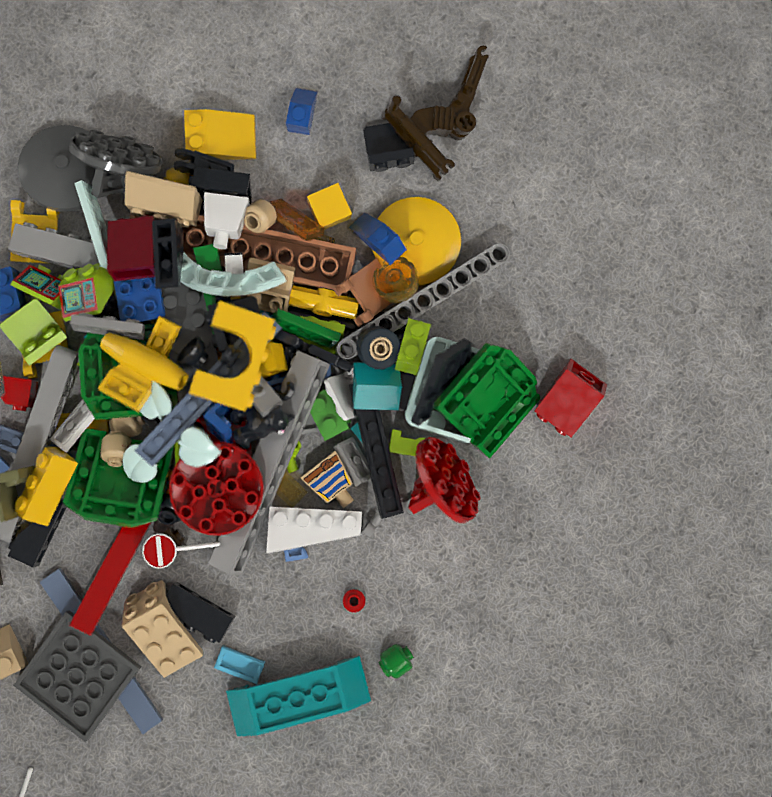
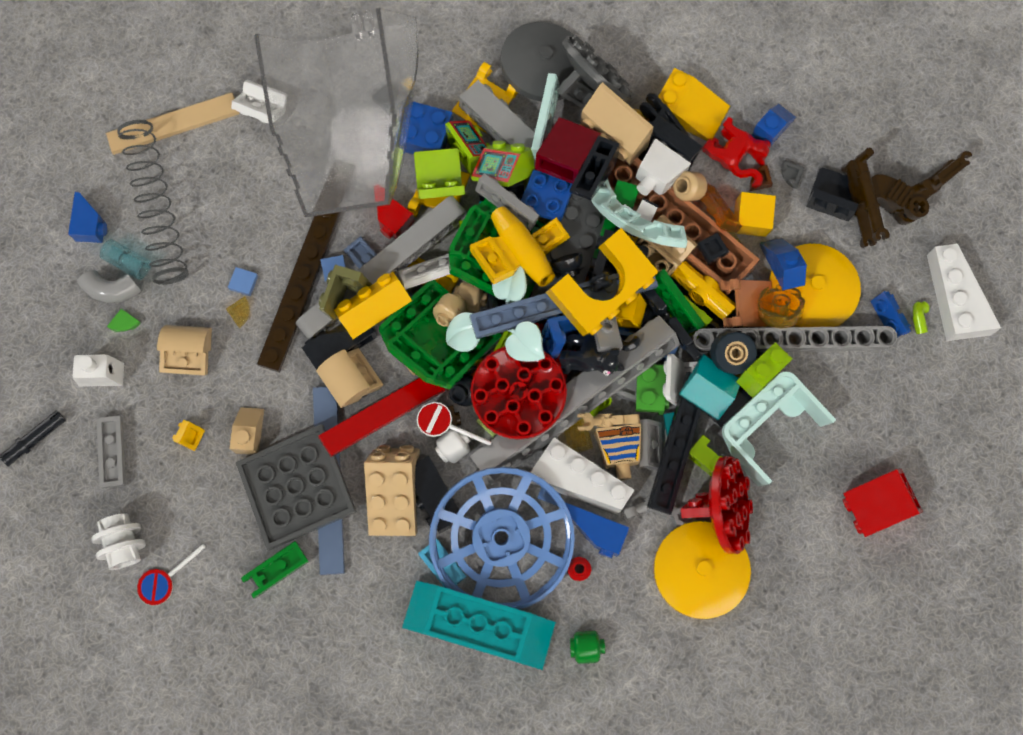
camera: 35 degrees right, 10 degrees down
(65, 555) = (348, 376): none -> tan brick
(103, 750) = (276, 568): none -> green hinge
(189, 563) = (452, 446): none -> white head
(275, 630) = (518, 536): none -> medium blue dish
(281, 153) = (738, 145): none -> red animal
(305, 464) = (606, 420): none -> tan piece
(310, 262) = (712, 248): none -> black tile
(318, 168) = (767, 181): none -> reddish brown tile
(342, 147) = (791, 173): none -> dark grey tile
(354, 560) = (599, 531): none -> blue slope
(444, 370) = (784, 407): black wing -> none
(454, 551) = (698, 574): none -> yellow dish
(485, 224) = (887, 309): none -> blue hinge
(489, 398) = (808, 456): green wedge -> none
(518, 219) = (919, 317): none -> lime arm
(541, 179) = (959, 297): none -> white wedge

